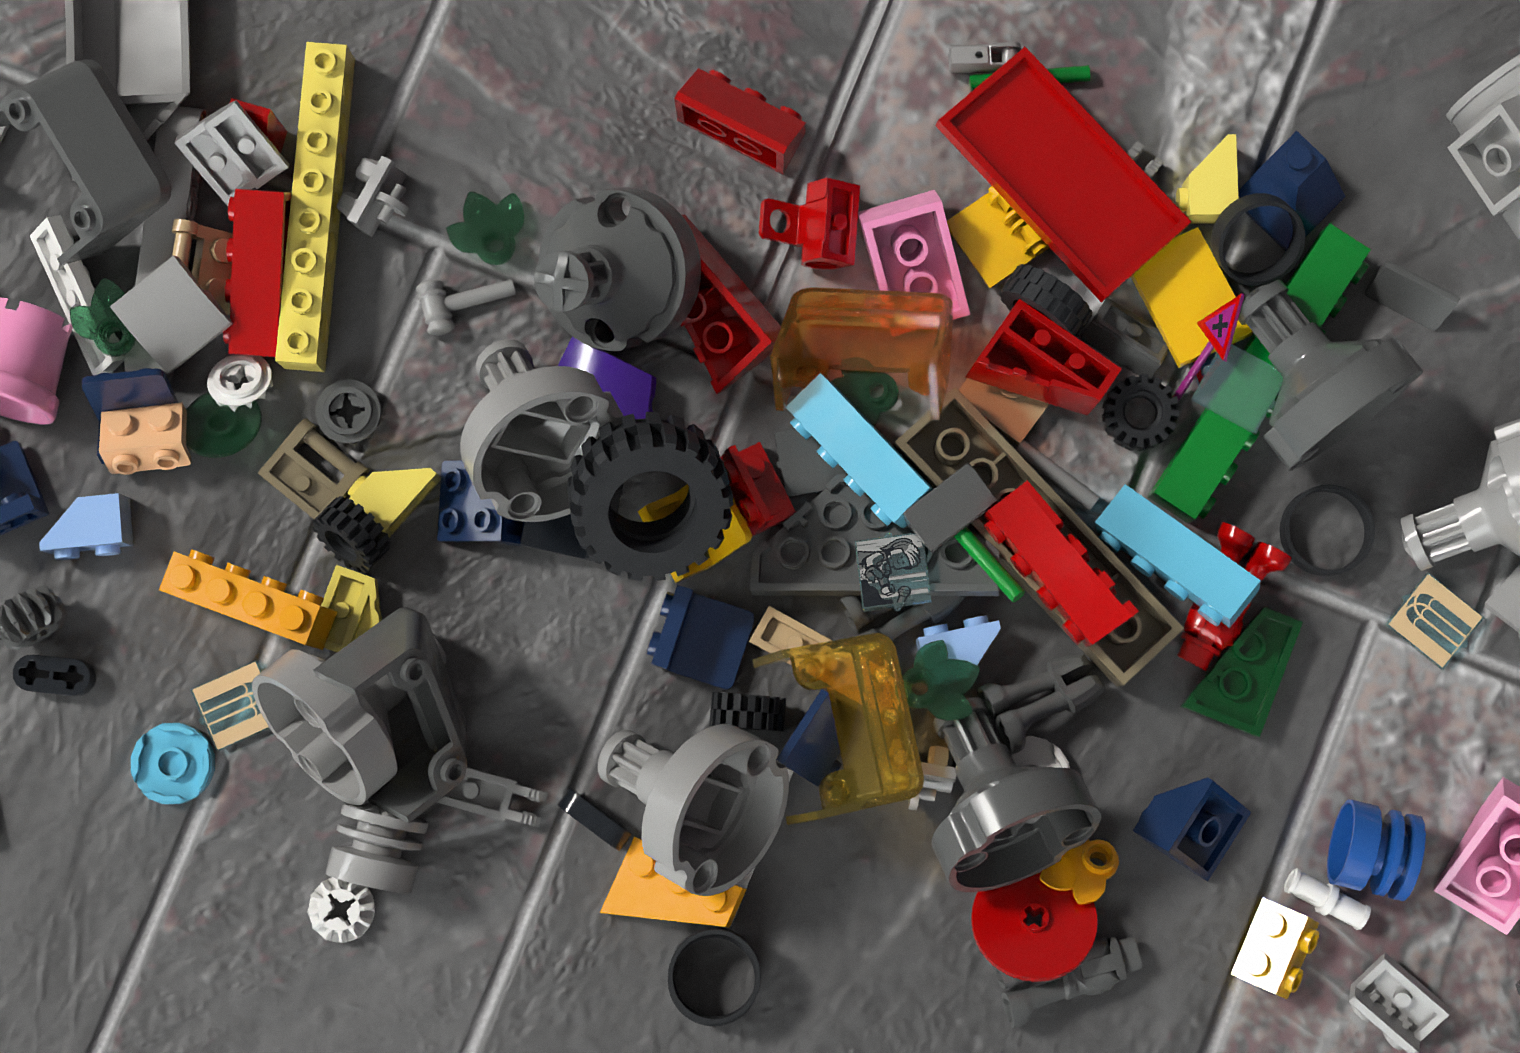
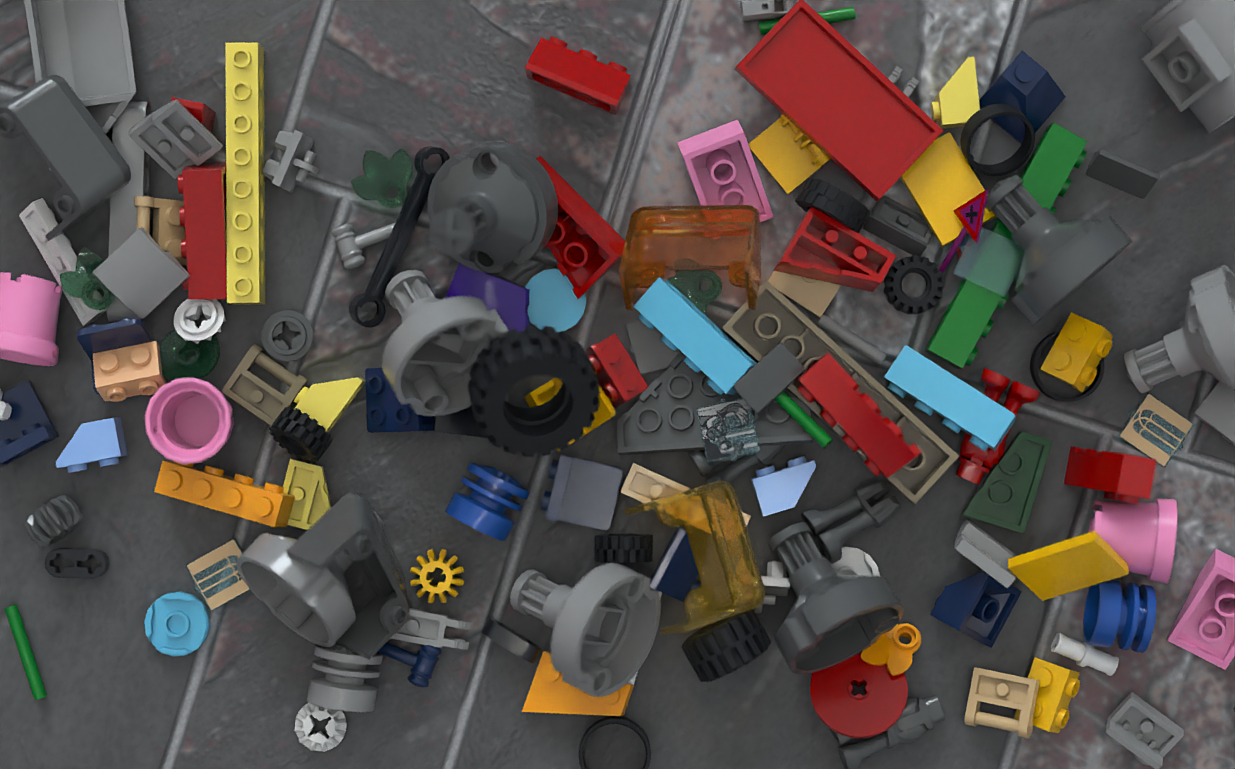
camera: 10 degrees left, 5 degrees up
(211, 500) = (188, 420): none -> bright pink piece
(478, 840) = (422, 664): none -> dark blue piece
(496, 305) = (397, 240): none -> black piece
(512, 742) = (431, 566): none -> yellow gear
(580, 637) = (487, 501): none -> blue wheel
(686, 392) = (553, 301): none -> medium azure tile
(822, 226) = (650, 155): red piece -> none
(869, 846) = (726, 645): none -> black tyre
(945, 682) = (776, 513): clear green plate -> none
(1211, 756) = (985, 552): none -> light grey slope
(1220, 937) = (1004, 691): none -> tan plate
(1315, 779) = (1068, 566): none -> yellow tile
(1343, 511) = (1078, 352): none -> yellow bracket
(1382, 668) = (1117, 474): none -> red wedge
(1402, 751) = (1139, 534): none -> bright pink piece

